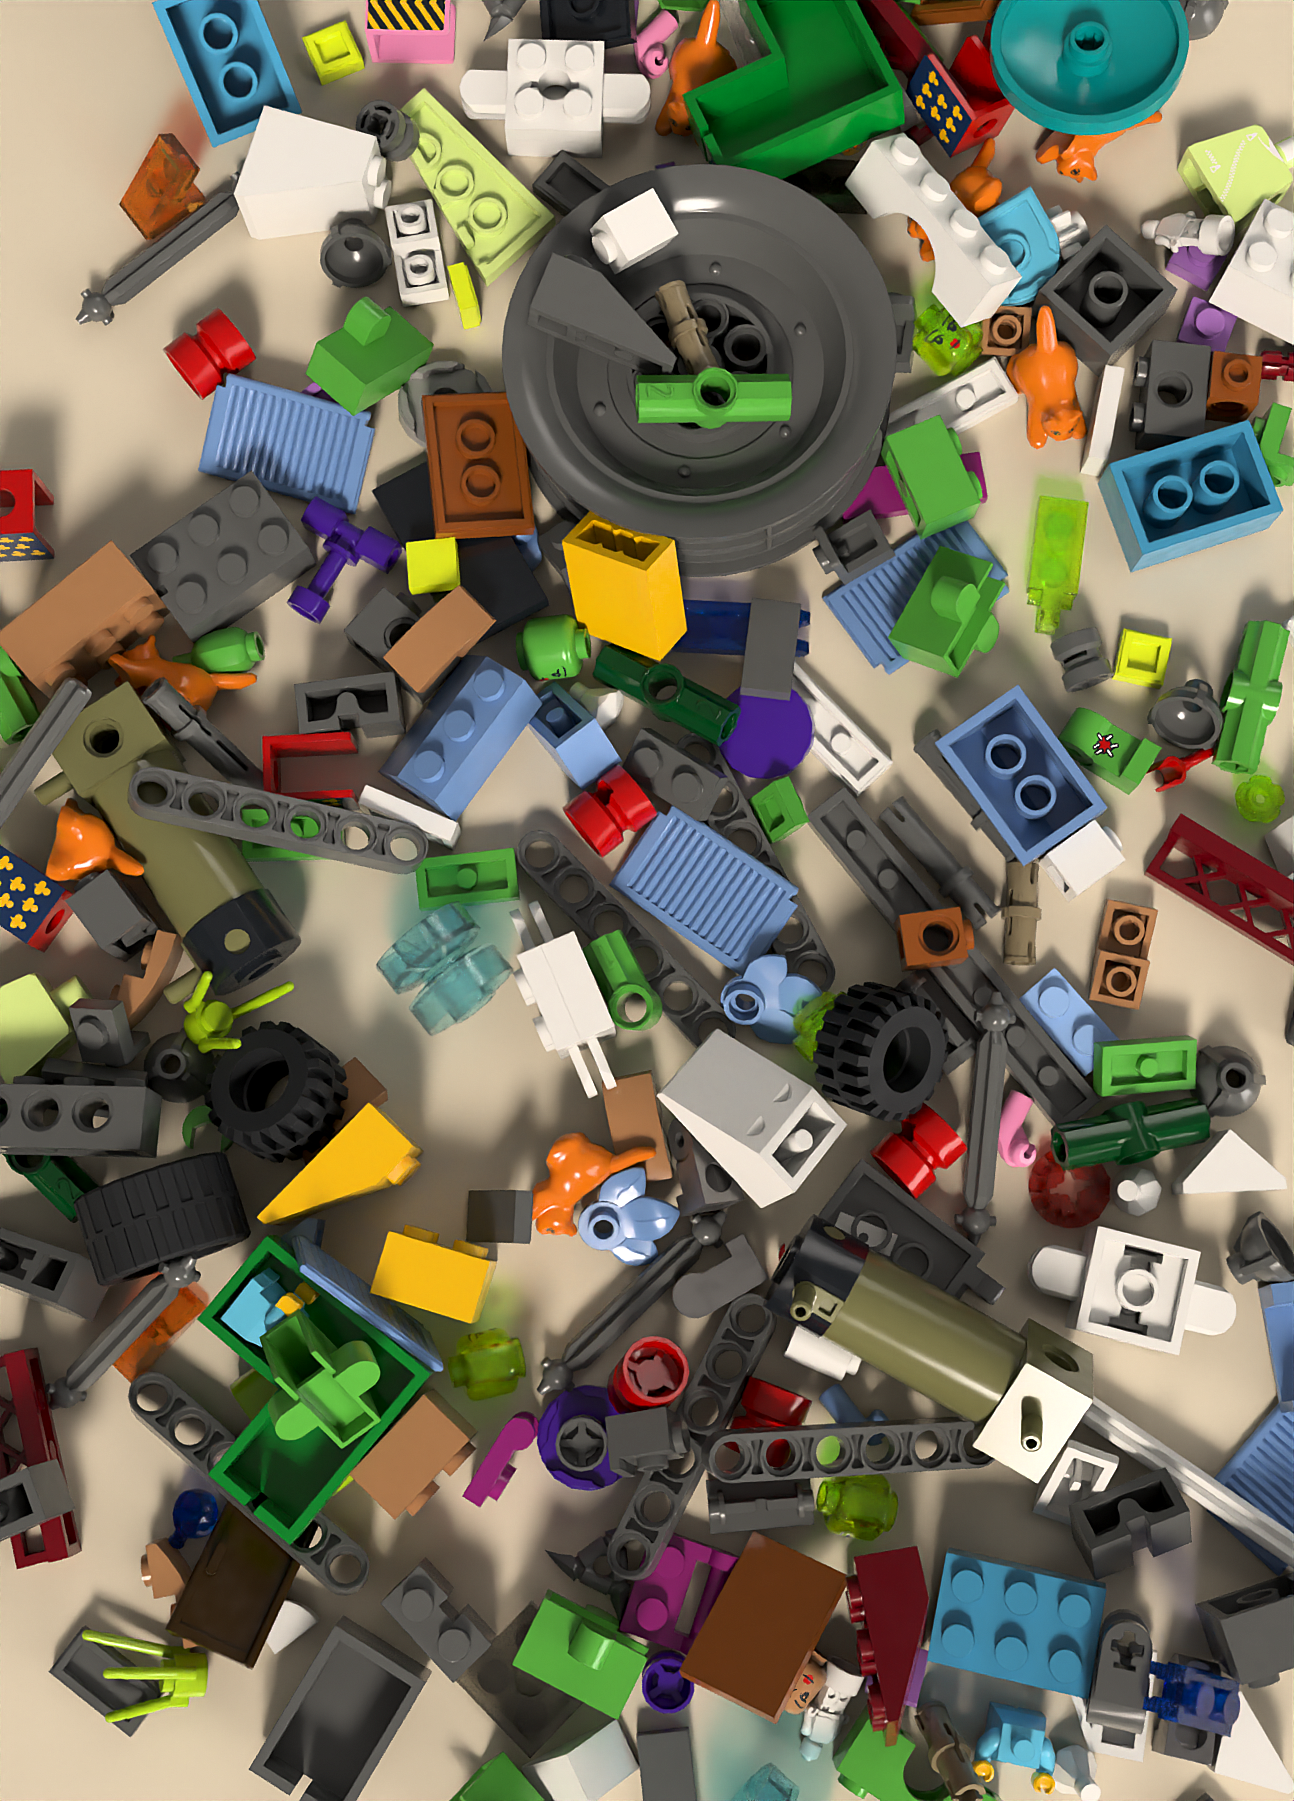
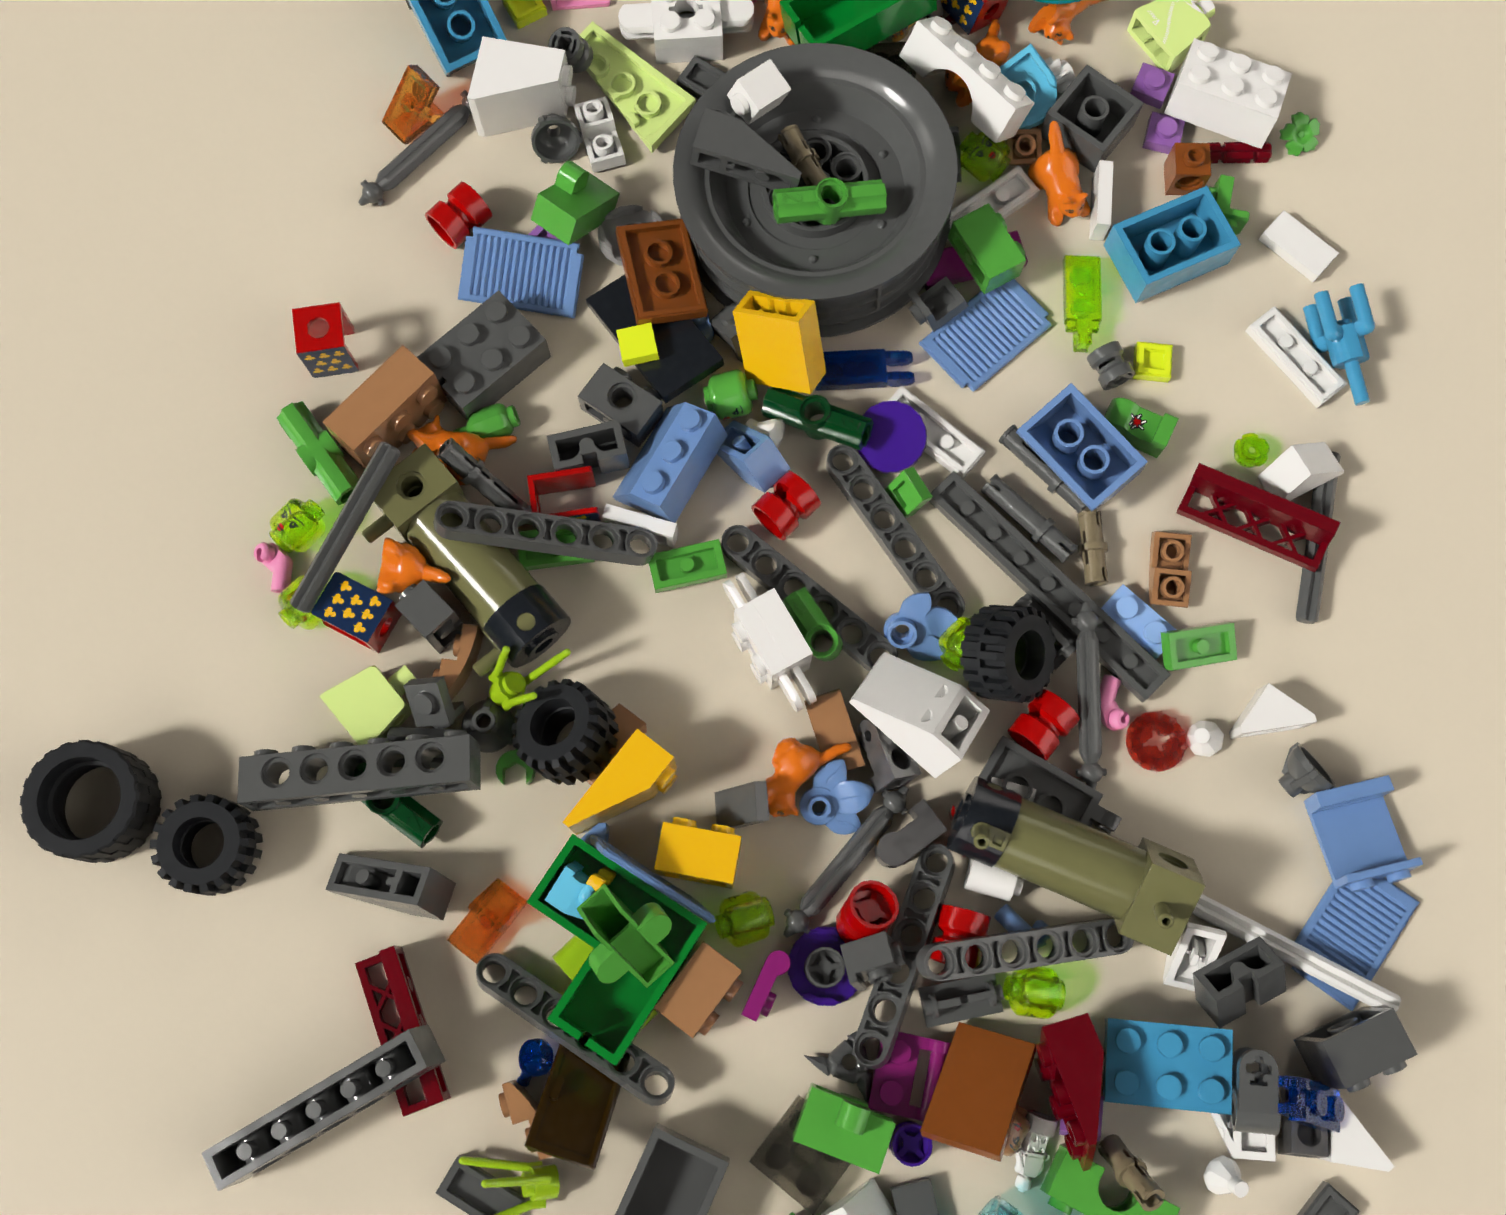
camera: 10 degrees left, 5 degrees down
(123, 1331) = (468, 922): dark grey wheel -> none
(161, 1216) = (489, 833): black tyre -> none
(290, 1624) = (617, 1134): white tile -> none
(345, 546) = (571, 341): dark purple bar -> none
(439, 638) = (648, 392): medium nougat slope -> none
(445, 1635) = (741, 1129): dark grey brick -> none
(453, 980) = (673, 623): clear light blue wheel -> none
(464, 295) = (637, 158): neon yellow tile -> none
(674, 774) = (830, 474): dark grey plate -> none
(706, 889) = (863, 554): medium blue window -> none
(770, 649) = (889, 378): dark grey tile -> none
(911, 946) = (1023, 581): dark orange brick -> none
(949, 613) = (1013, 341): bright green piece -> none
(1016, 1738) = (1182, 1157): medium azure piece -> none
(1083, 859) = (1132, 505): white brick -> none
(1130, 1133) = (1196, 695): dark green piece -> none
(1132, 1289) = (1215, 808): white brick -> none
(1175, 768) = (1188, 435): red hand -> none
(1182, 372) = (1152, 162): dark grey brick -> none
(1187, 716) = (1190, 400): dark grey piece -> none
(1211, 235) = (1160, 67): white piece -> none
(1212, 1085) = (1251, 659): dark grey piece -> none
(1250, 697) = (1234, 379): bright green piece -> none

